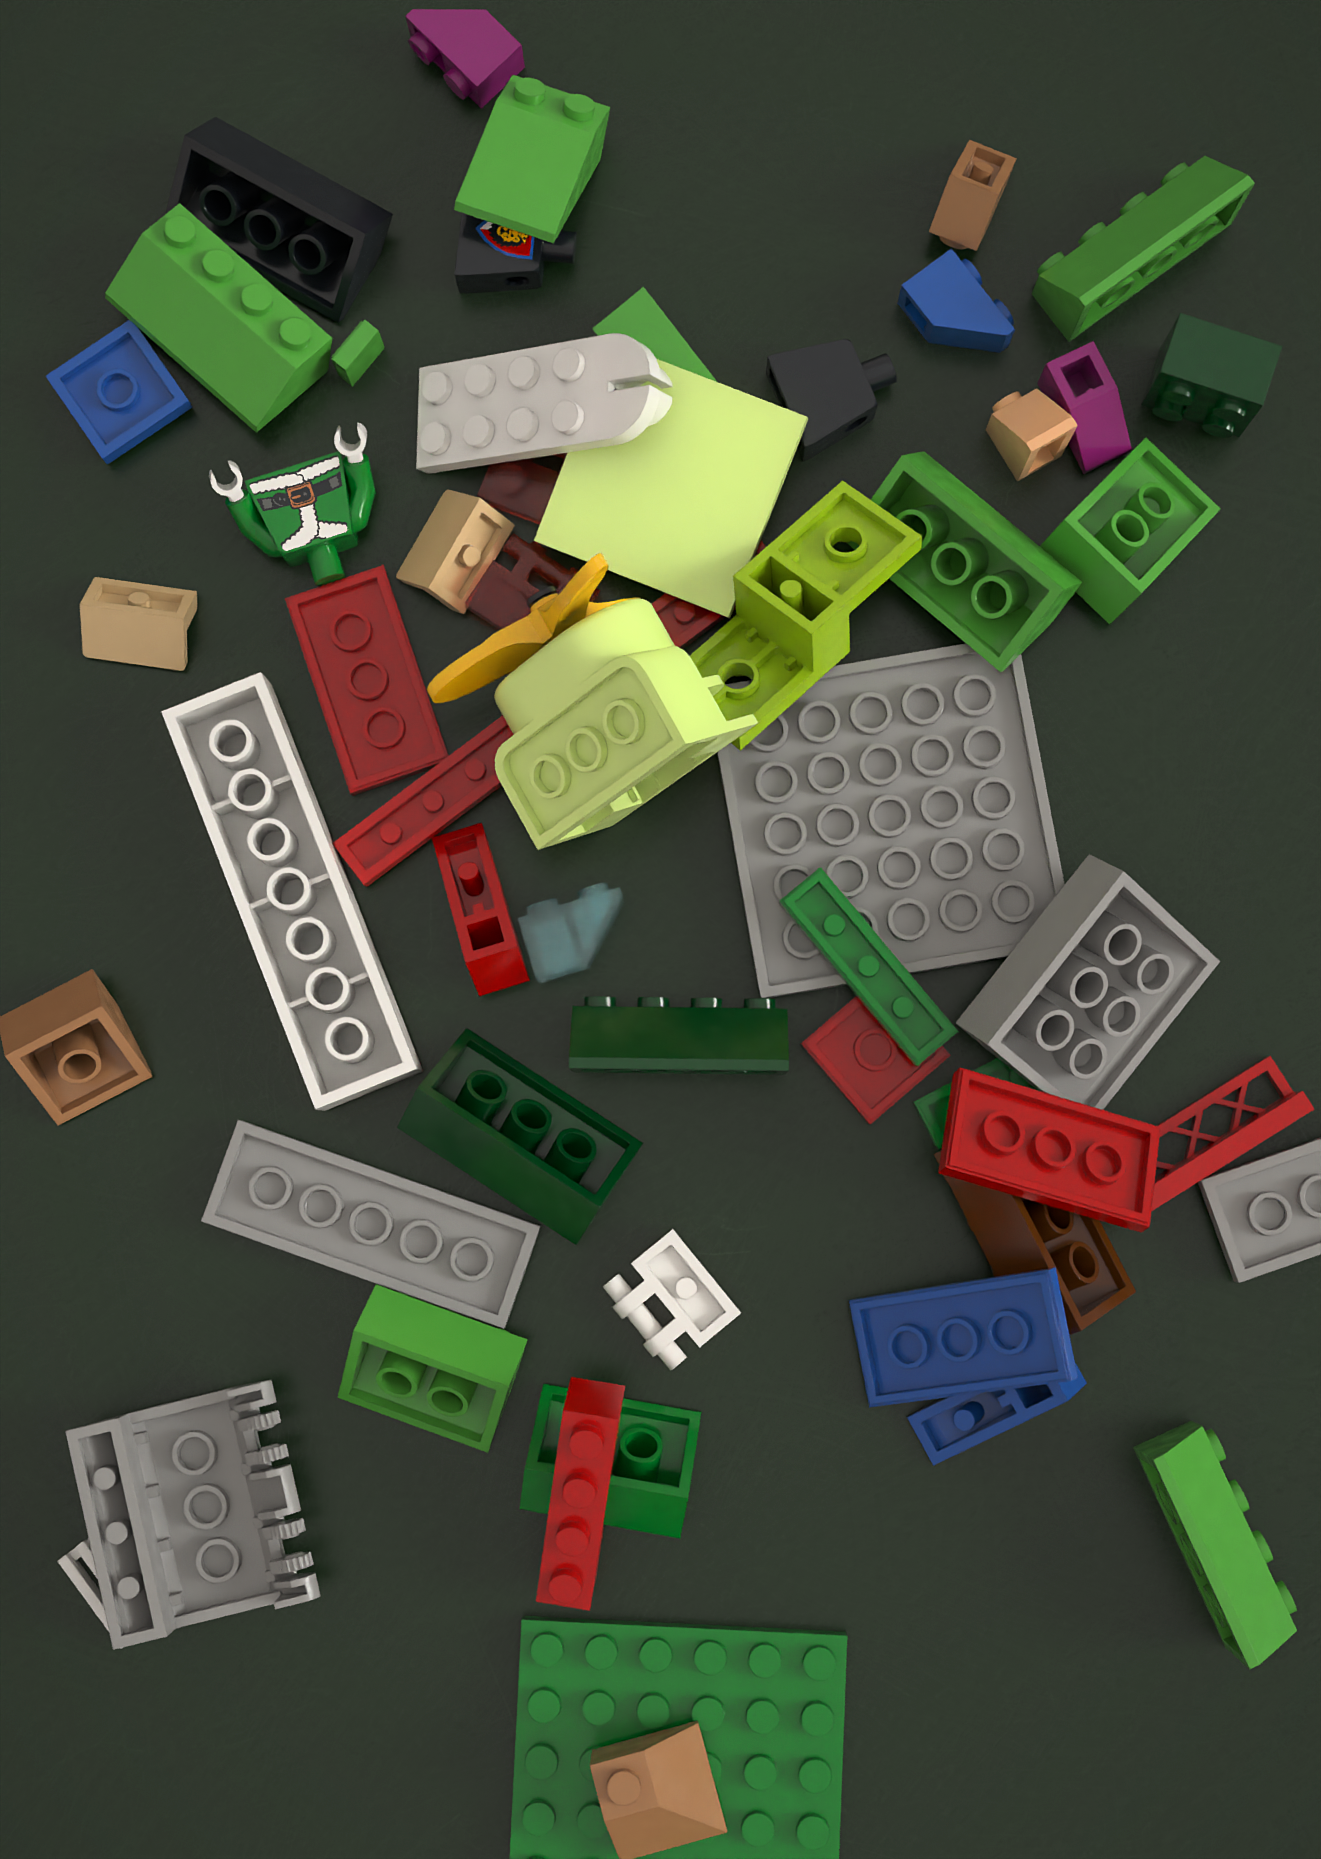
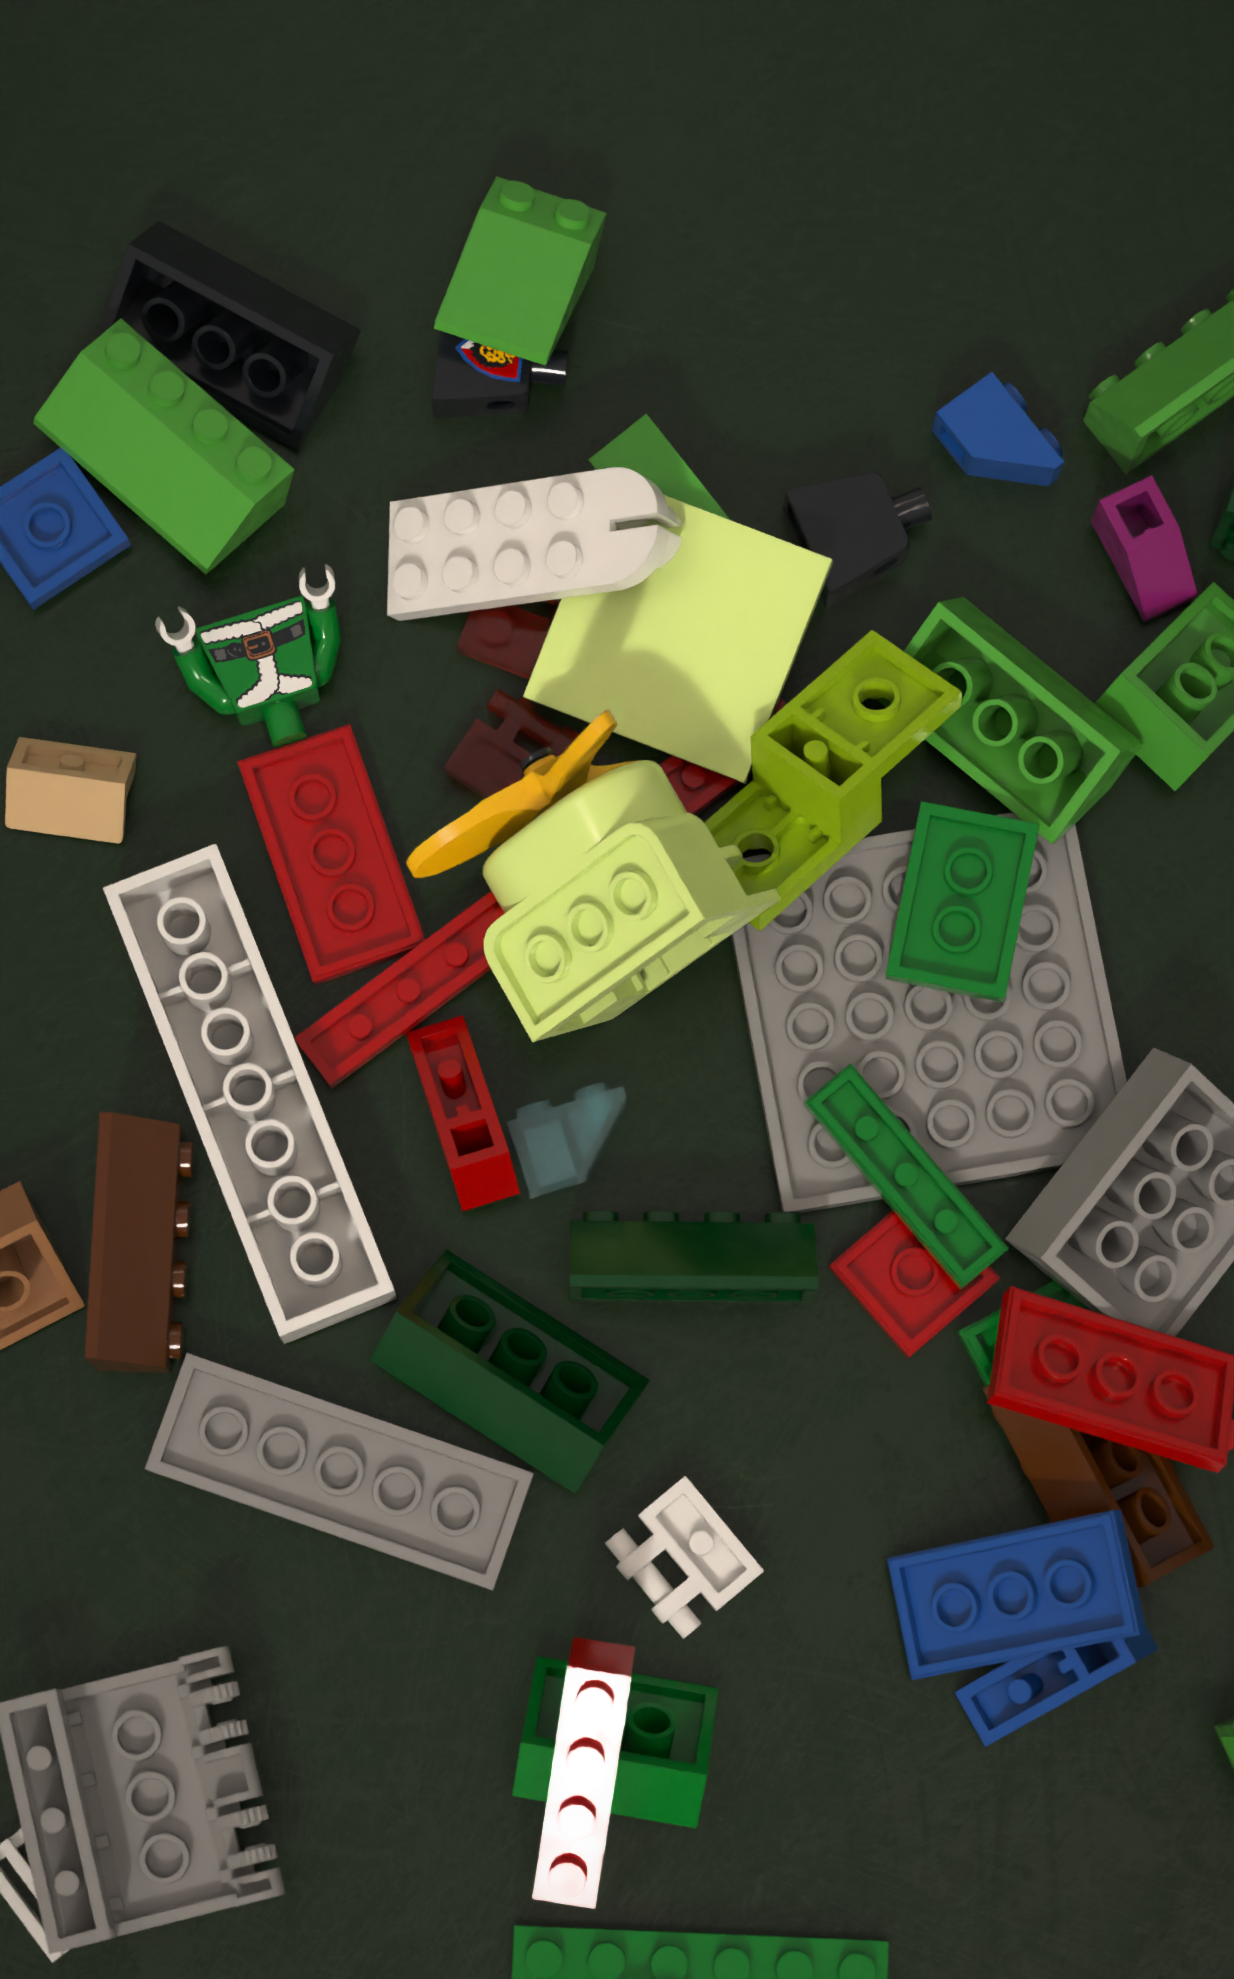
camera: 10 degrees left, 5 degrees down
(192, 1025) = (136, 1244): none -> reddish brown slope
(358, 352) = (320, 484): bright green tile -> none
(431, 1367) = (409, 1637): bright green slope -> none
(455, 548) = (432, 705): tan panel -> none
(468, 48) = (445, 145): magenta slope -> none
(920, 723) = (962, 901): none -> green plate
(971, 196) = (1014, 312): medium nougat slope -> none
(1029, 431) = (1082, 575): light nougat slope -> none

